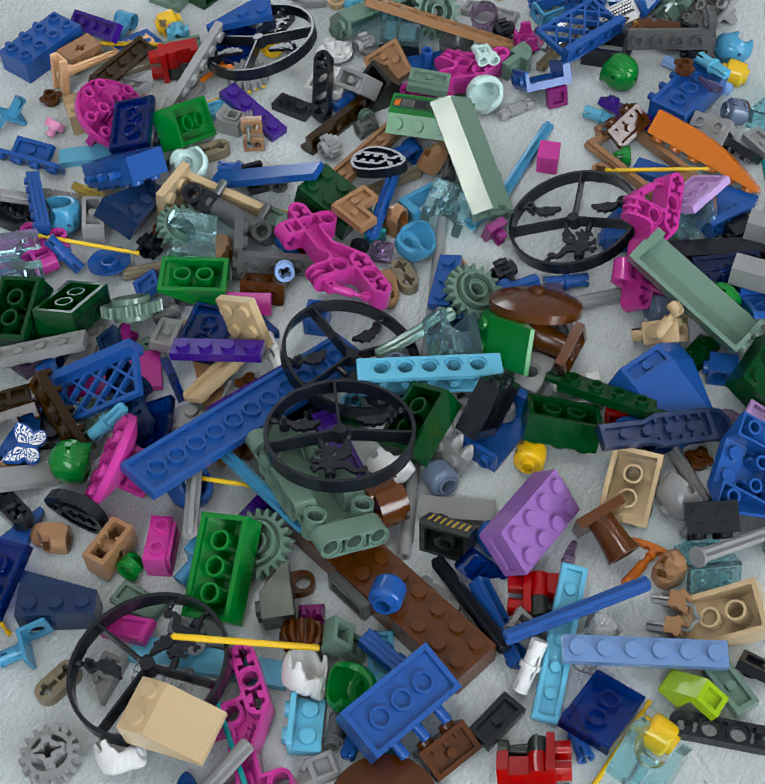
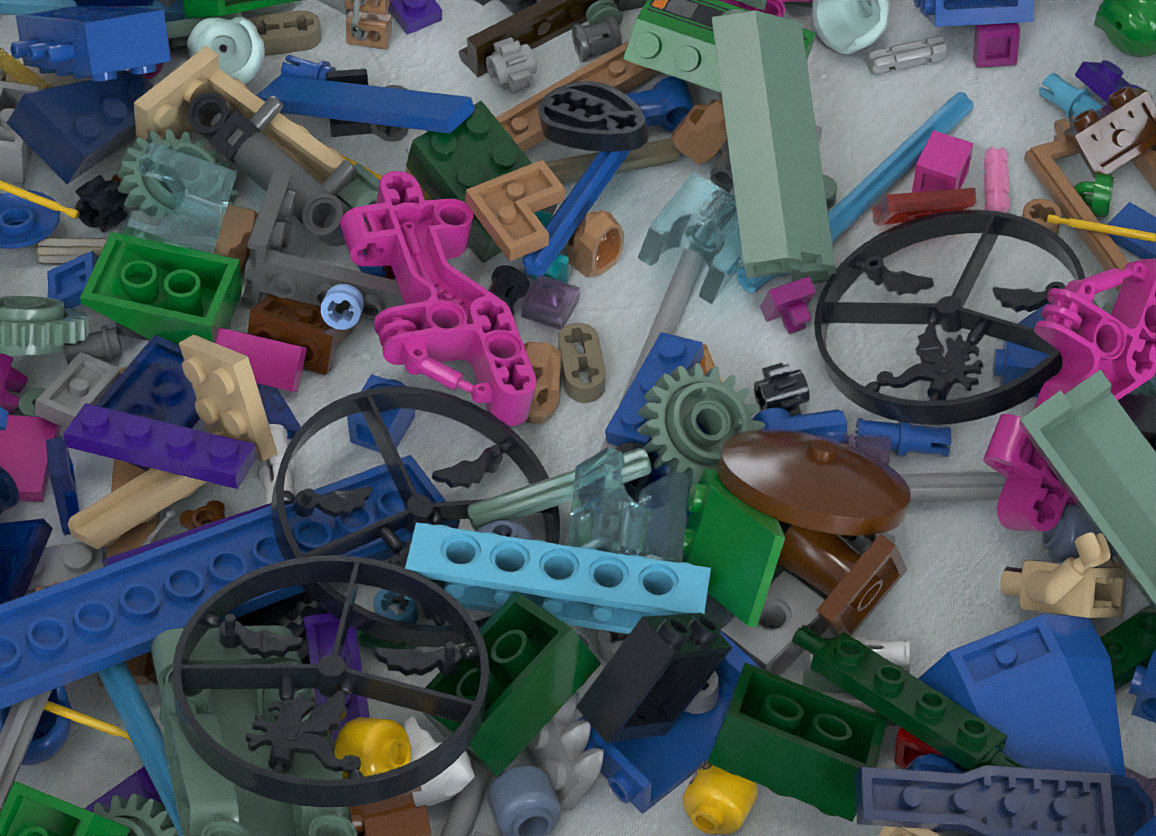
camera: 10 degrees right, 0 degrees up
(368, 457) = (377, 742): none -> yellow head
(415, 200) = (637, 212): dark azure bracket -> none
(415, 241) = (621, 295): dark azure piece -> none
(538, 176) = (909, 206): none -> clear red tile
(574, 157) = (996, 180): none -> bright pink axle

